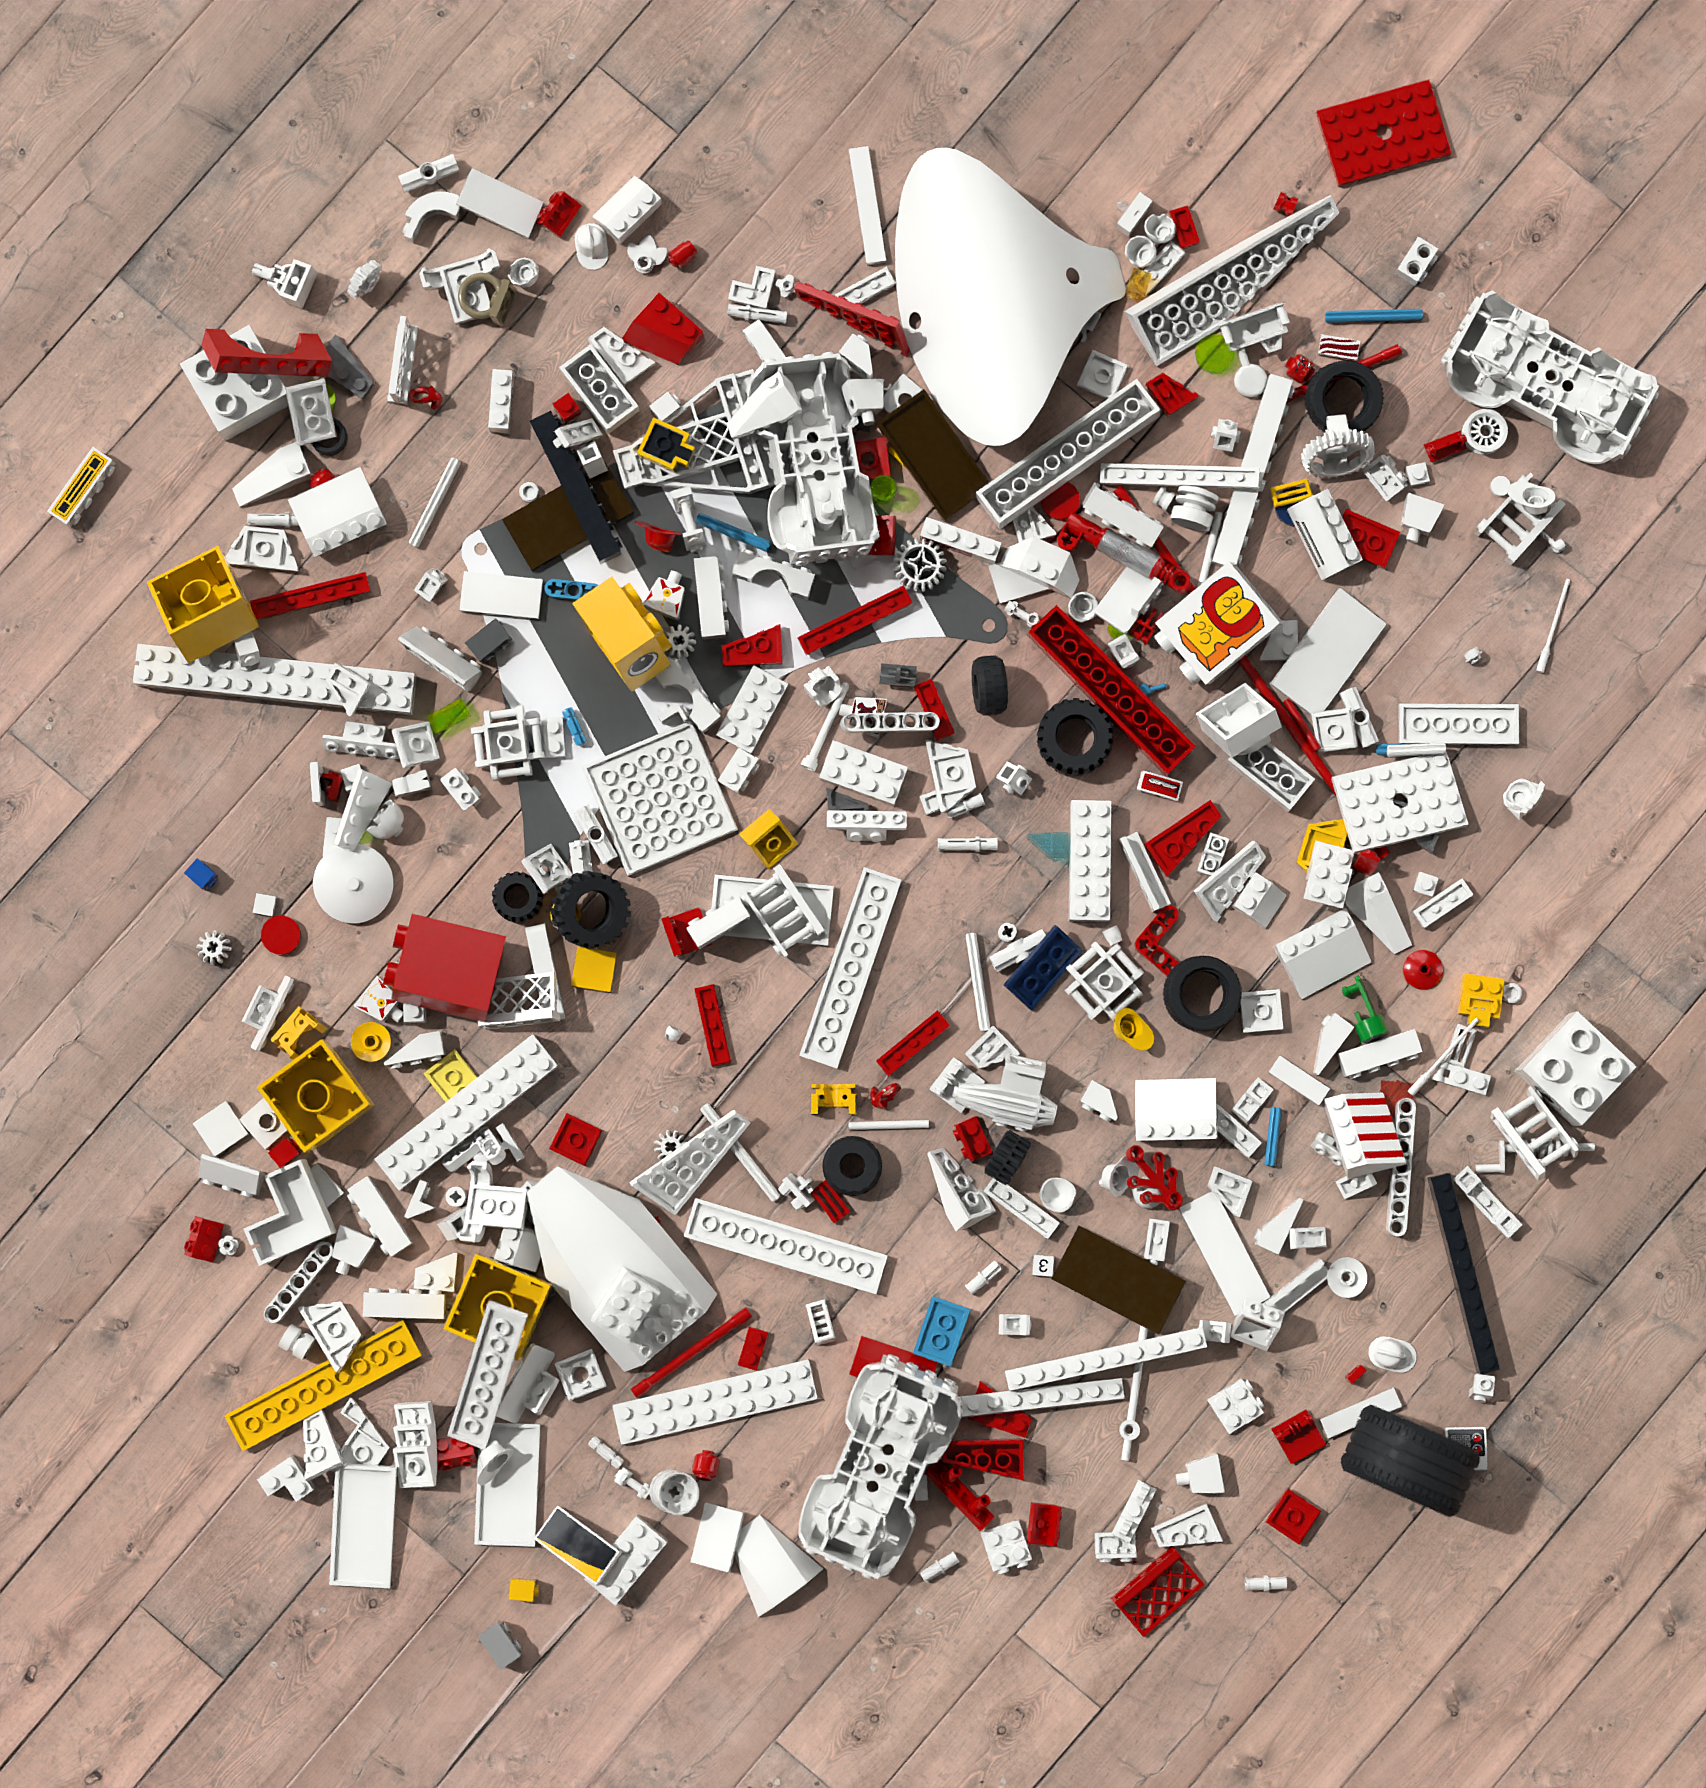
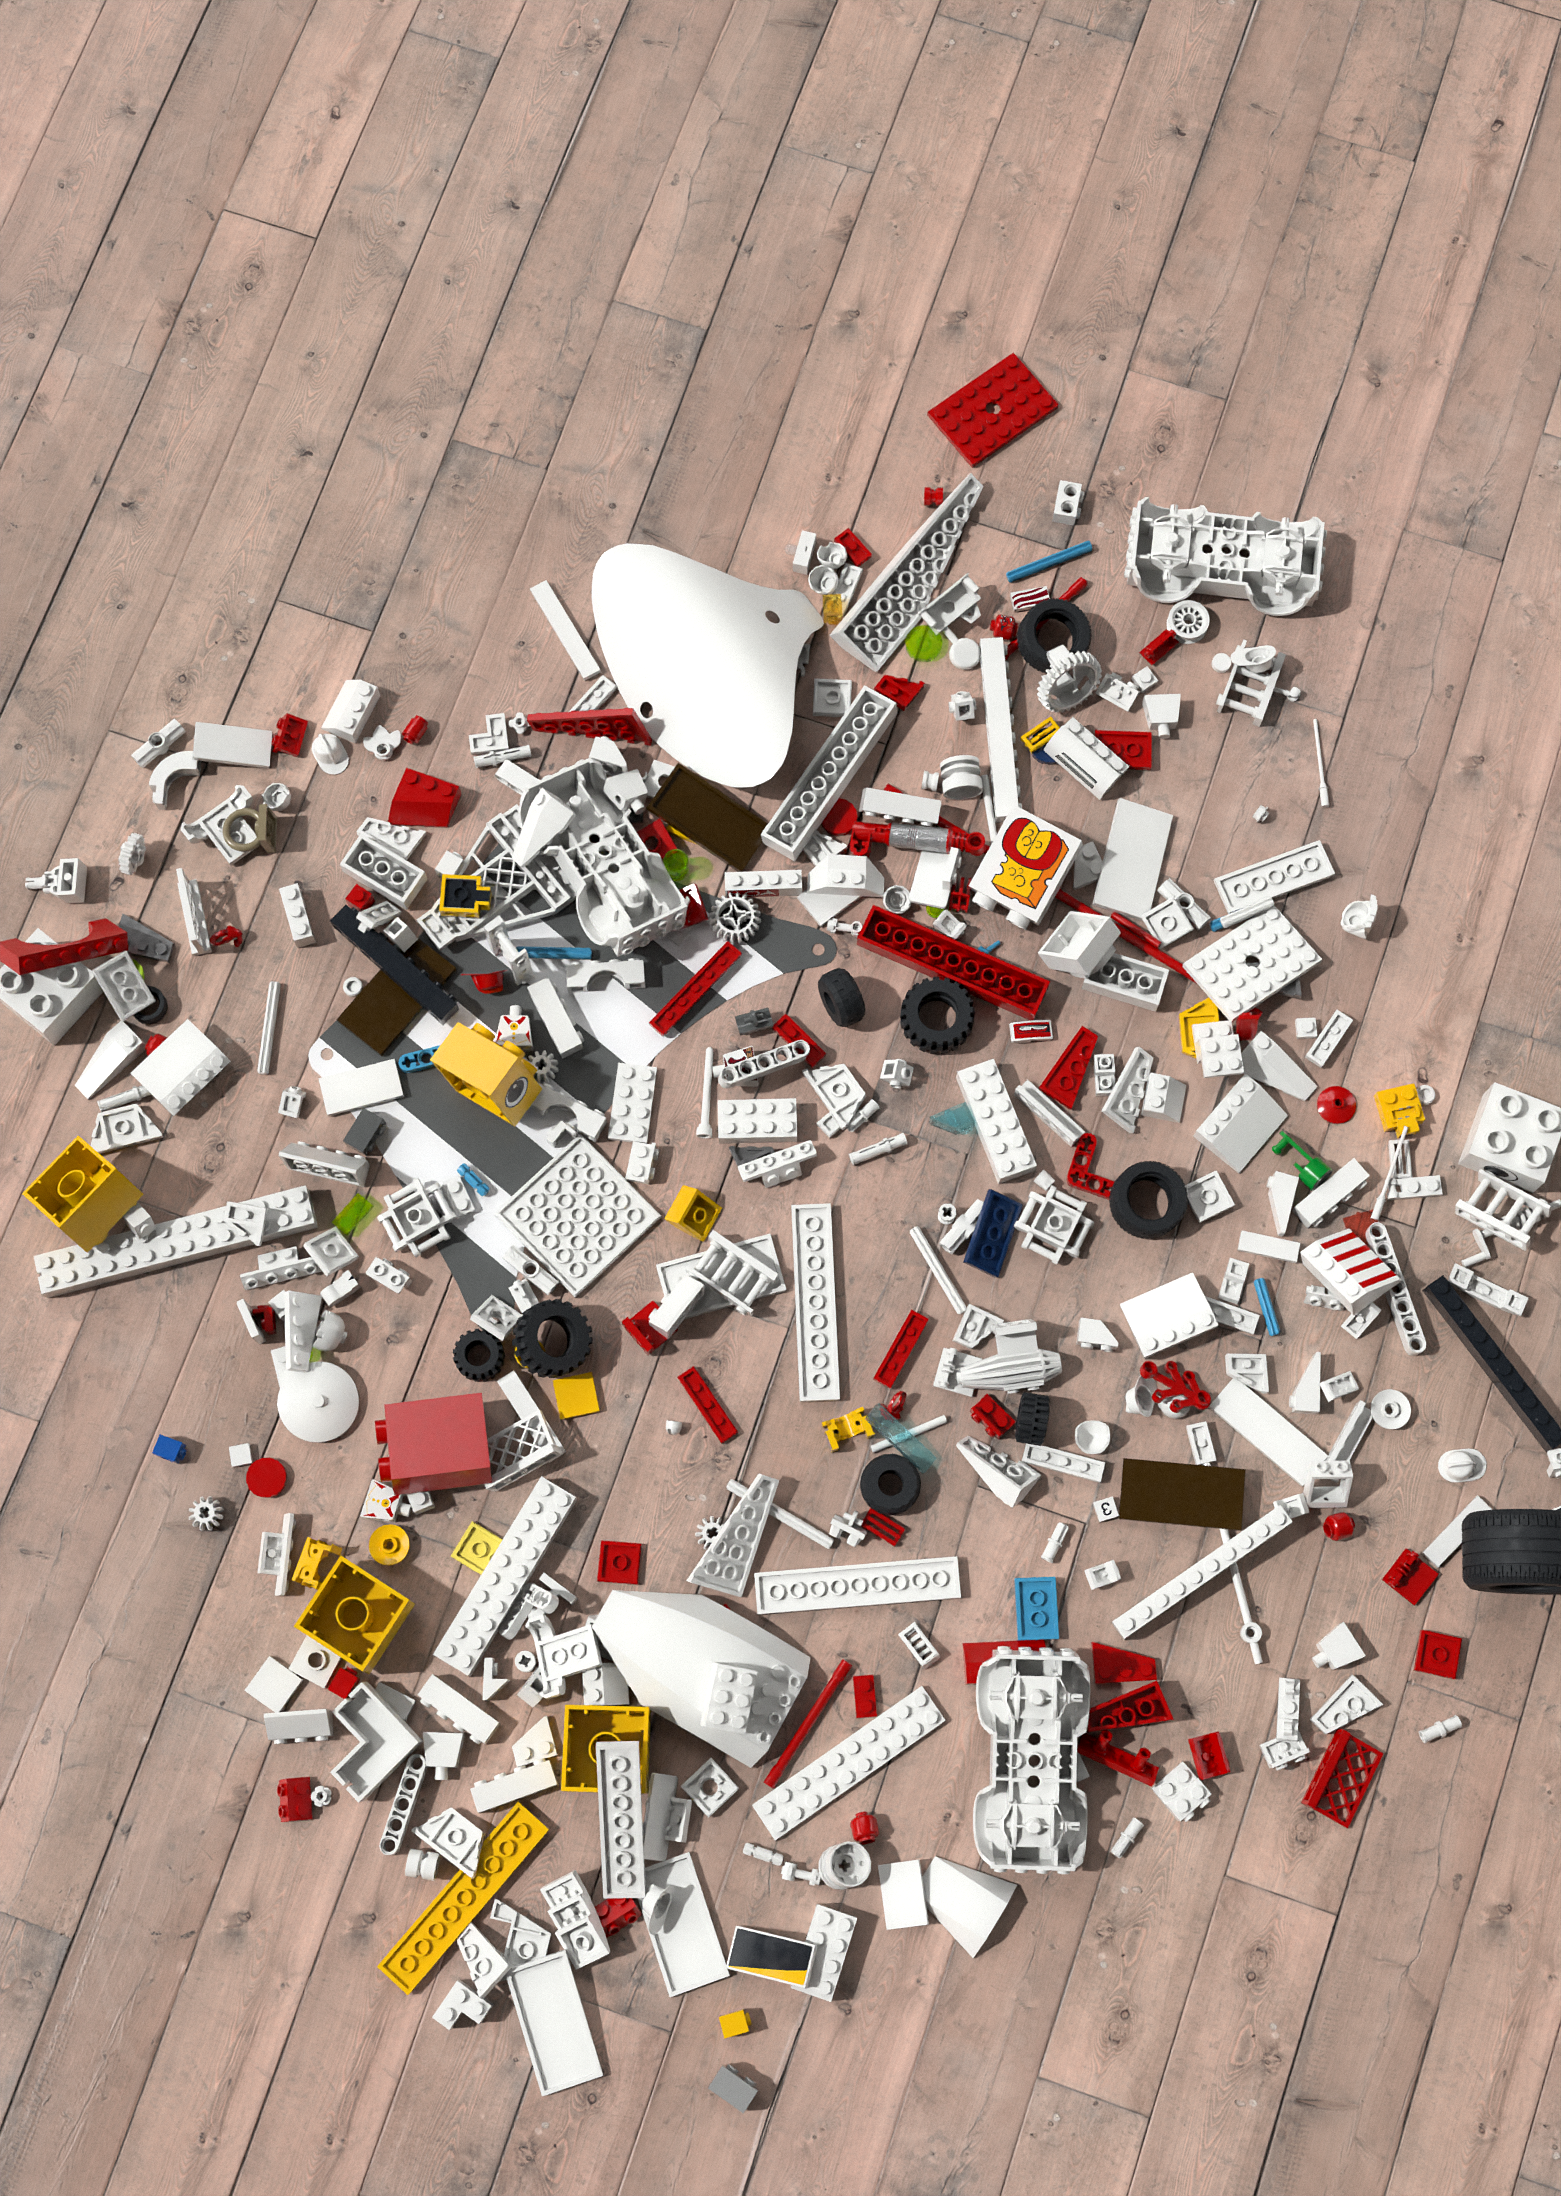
camera: 20 degrees left, 10 degrees down
(310, 596) = (183, 1153): red plate -> none
(424, 1046) = (440, 1531): white slope -> none
(758, 649) = (615, 1048): red wing -> none
(823, 686) = (689, 1056): white hair -> none
(878, 1126) = (900, 1438): none -> clear light blue tile
(1042, 1397) = (1158, 1633): white plate -> none
(1133, 1030) = (1096, 1257): yellow piece -> none
(1180, 475) = (935, 754): white plate -> none
(1236, 1405) = (1340, 1569): white plate -> none
(1251, 1366) = (1338, 1526): none -> red head
(1357, 1372) = (1437, 1496): red tile -> none

